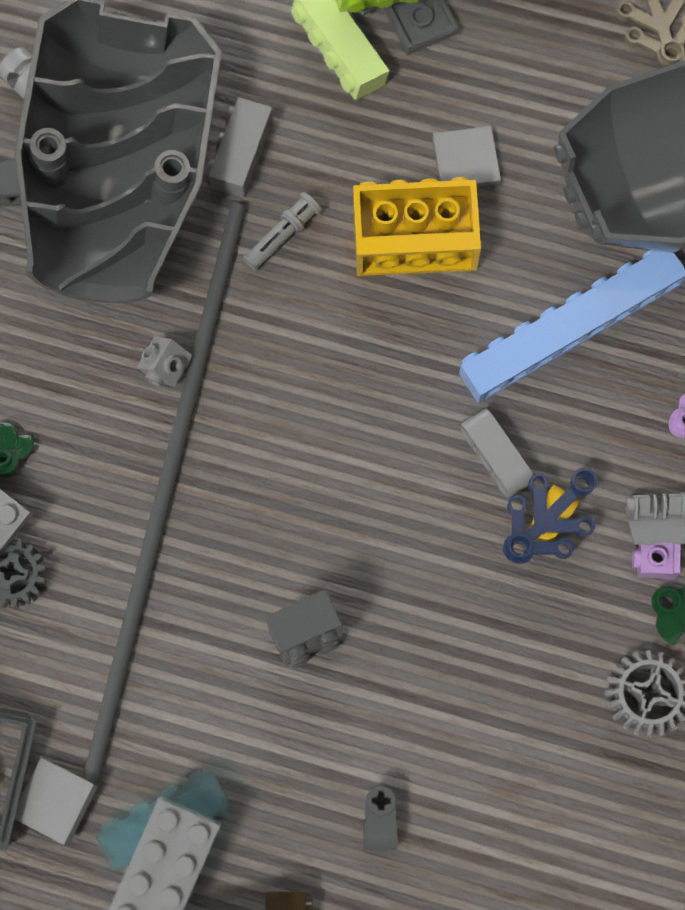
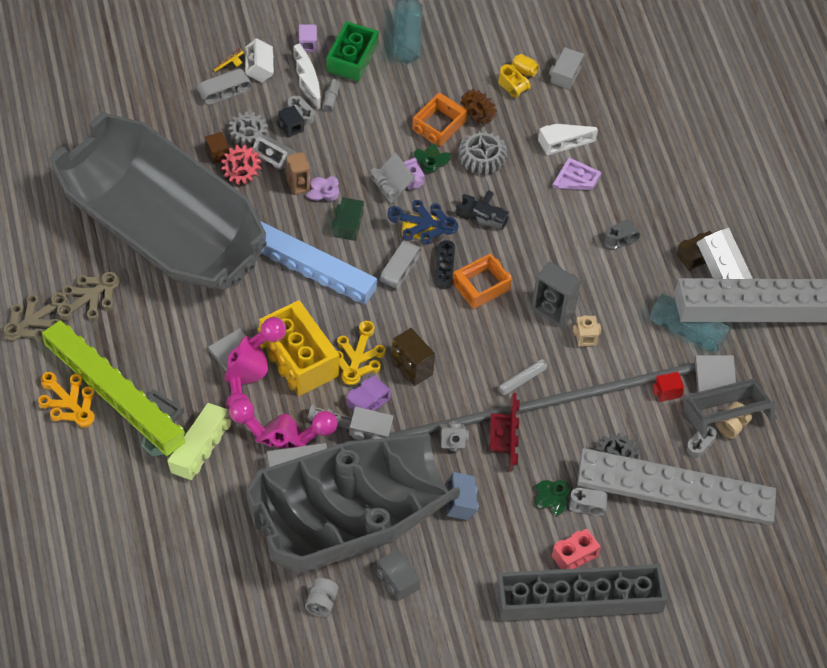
camera: 125 degrees left, 20 degrees down
(64, 320) = (467, 503): none -> sand blue brick
(74, 716) = (668, 386): none -> red brick
(133, 433) = (503, 432): none -> dark red bracket
(213, 520) = (522, 377): none -> light grey axle
(224, 644) = (587, 330): none -> tan brick
(234, 255) = (370, 424): none -> light grey brick
(293, 287) = (370, 395): none -> medium lavender brick
(296, 143) = (283, 430): none -> dark pink piece
(317, 371) = (412, 357): none -> dark brown brick
(372, 312) = (358, 357): none -> yellow plant
(405, 522) = (468, 291): none -> orange window
(430, 152) = (248, 361): none -> dark pink piece
(465, 507) = (445, 258): none -> black beam
(530, 819) = (576, 176): none -> lavender wing
(532, 628) = (482, 211): none -> black piece
(618, 421) = (348, 219): none -> clear green brick
(619, 837) = (564, 137): none -> white slope

